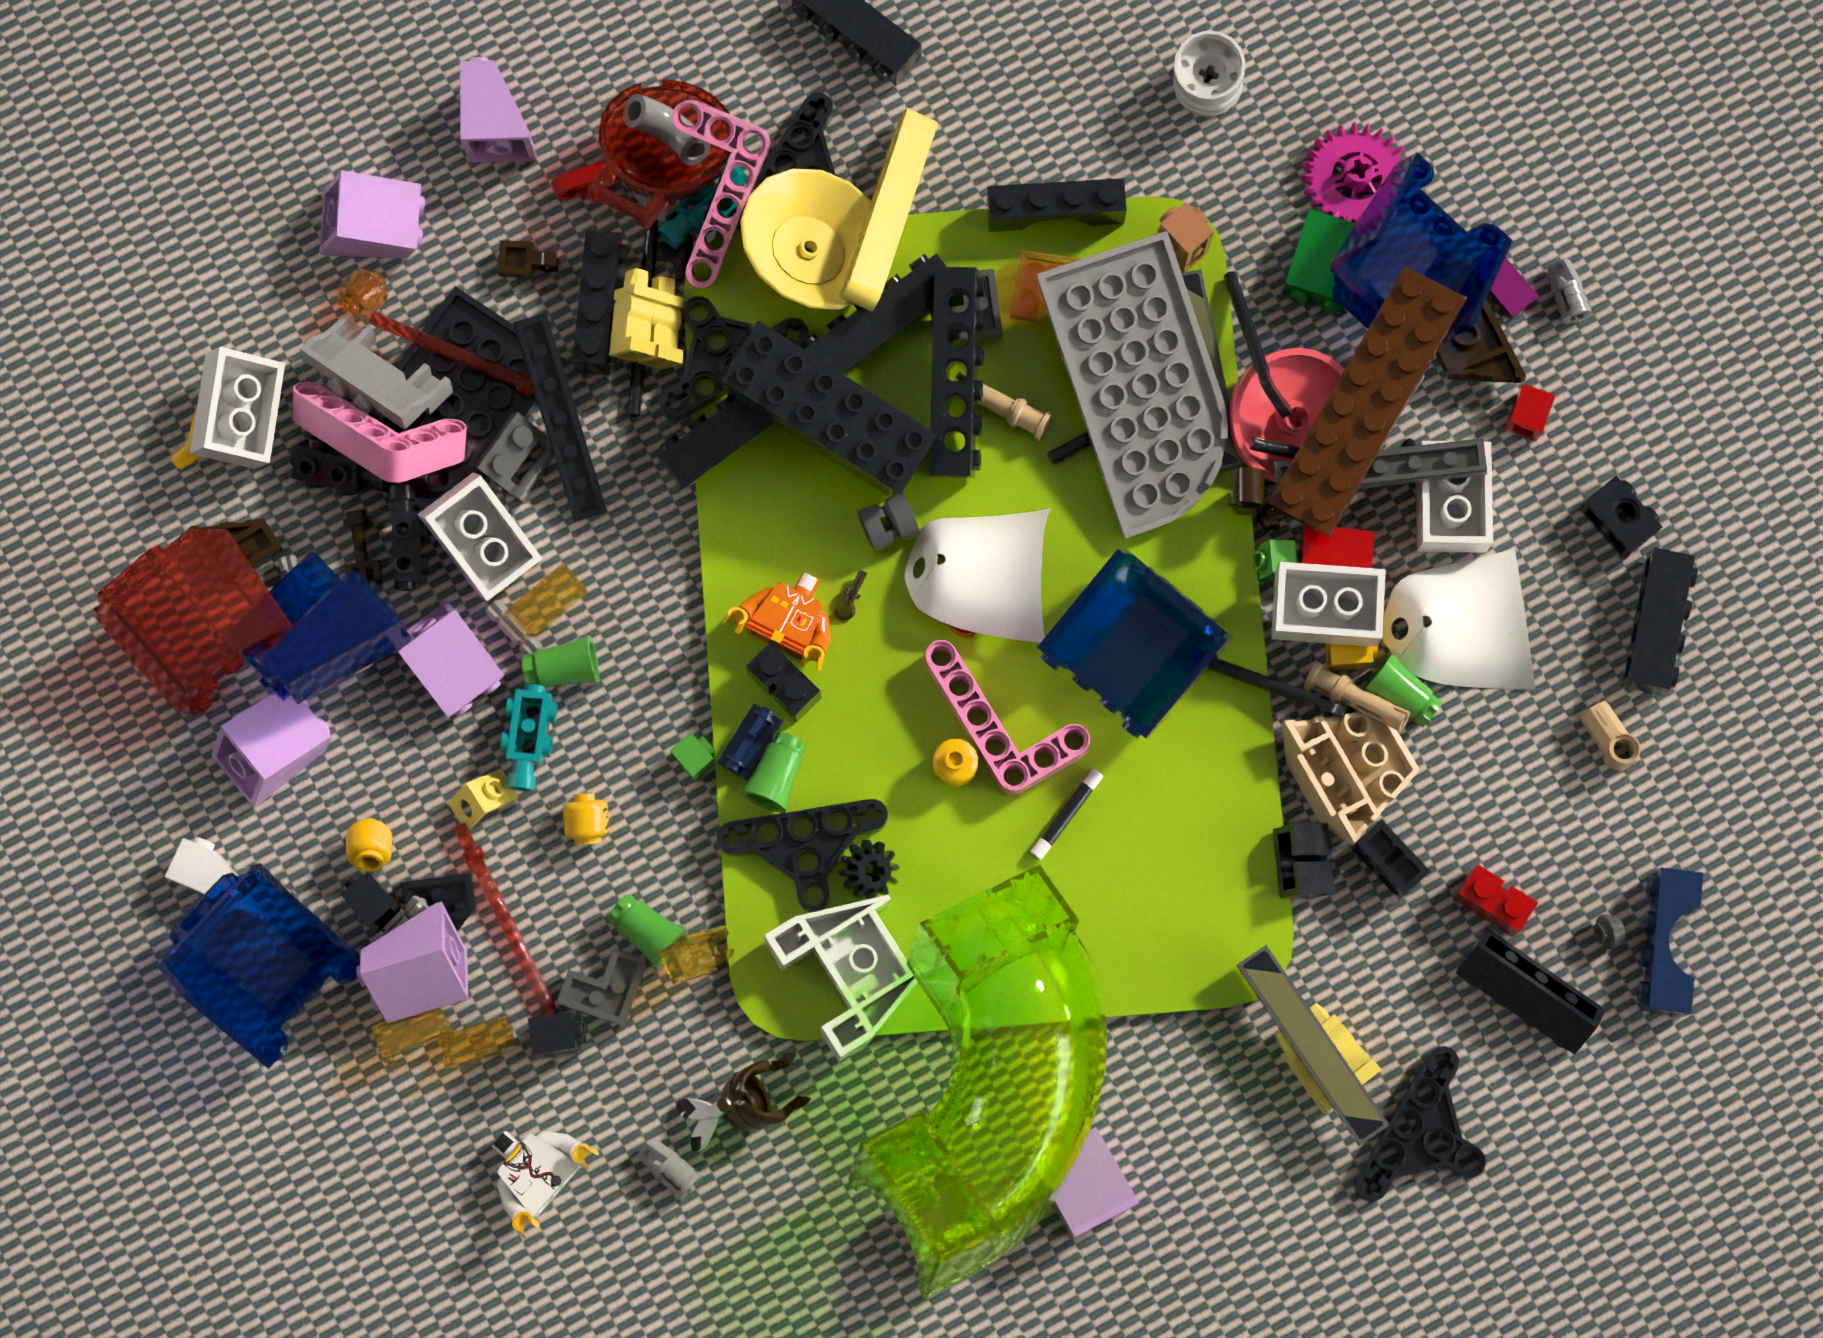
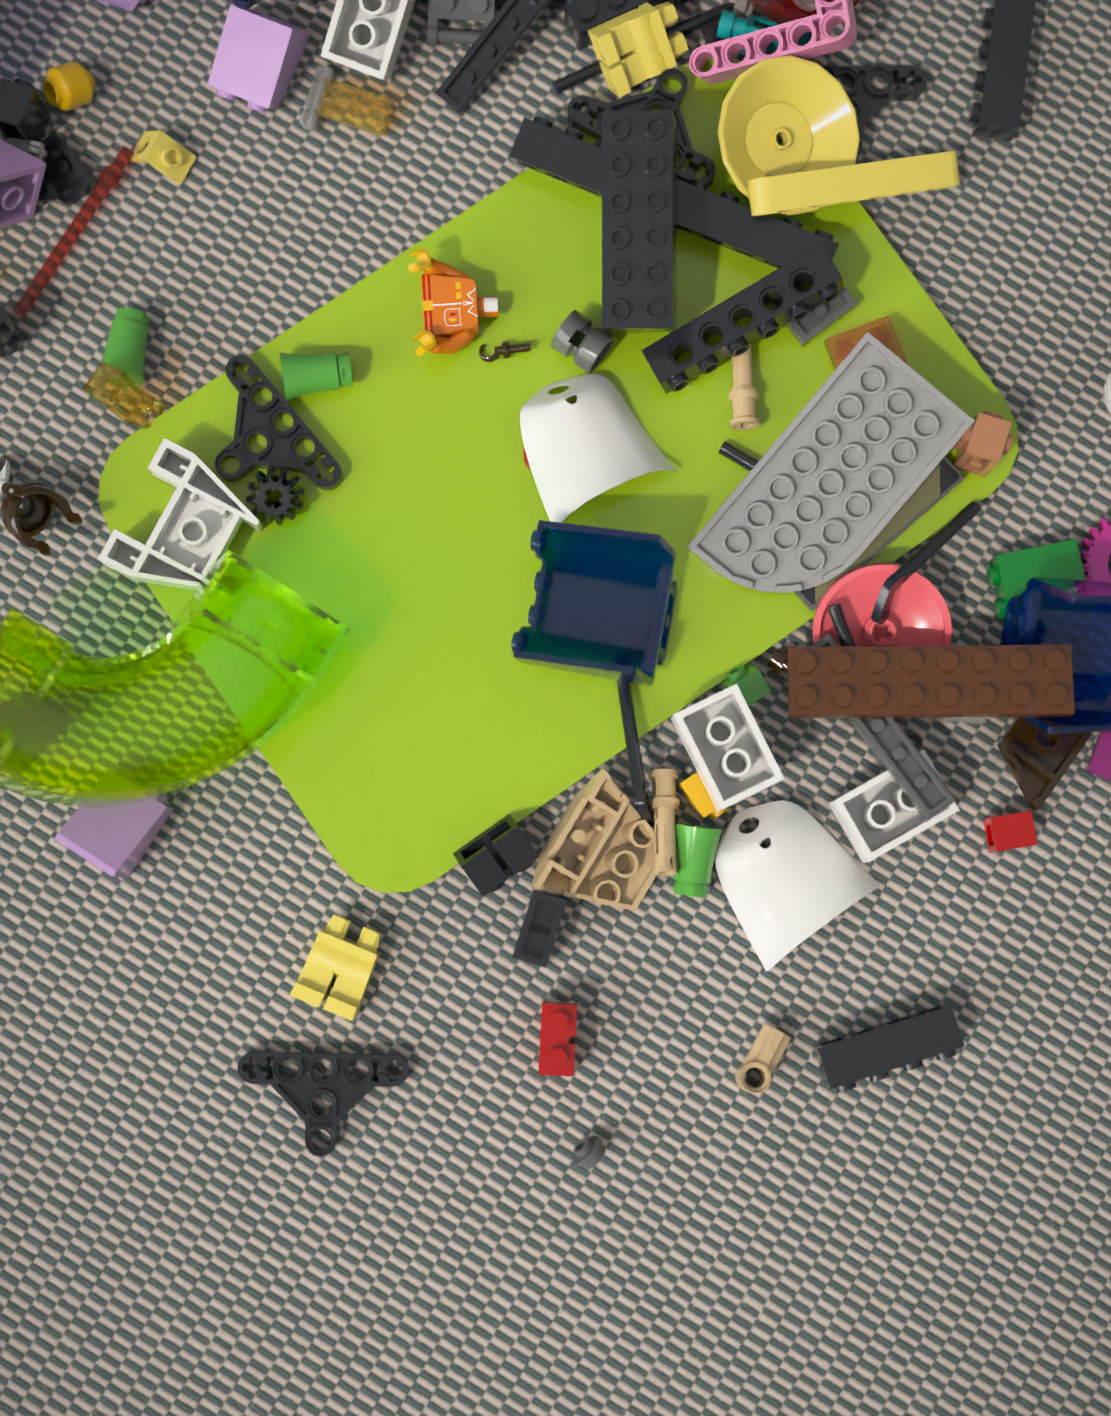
camera: 60 degrees right, 5 degrees up
(528, 730) = (237, 152): teal brick -> none
(562, 664) = (308, 152): bright green plant -> none
(586, 819) = (190, 245): yellow head -> none
(607, 998) = (54, 350): dark grey plate -> none
(694, 755) = (293, 301): bright green plate -> none
(750, 741) = (330, 337): dark blue hinge -> none
(794, 690) = (393, 340): black piece -> none
(955, 762) = (408, 514): yellow head -> none
(993, 729) = (457, 529): bright pink beam -> none
(1066, 814) = (421, 633): black bar -> none
(1086, 200) = (929, 295): black arch -> none
(1246, 490) = (788, 623): dark brown piece -> none
(1312, 1045) = (337, 950): olive tile -> none
(1344, 547) = (786, 737): red piece -> none
(1530, 991) = (494, 1113): black brick -> none
(1622, 536) = (947, 975): black brick -> none
(1665, 985) = (567, 1227): dark blue arch -> none

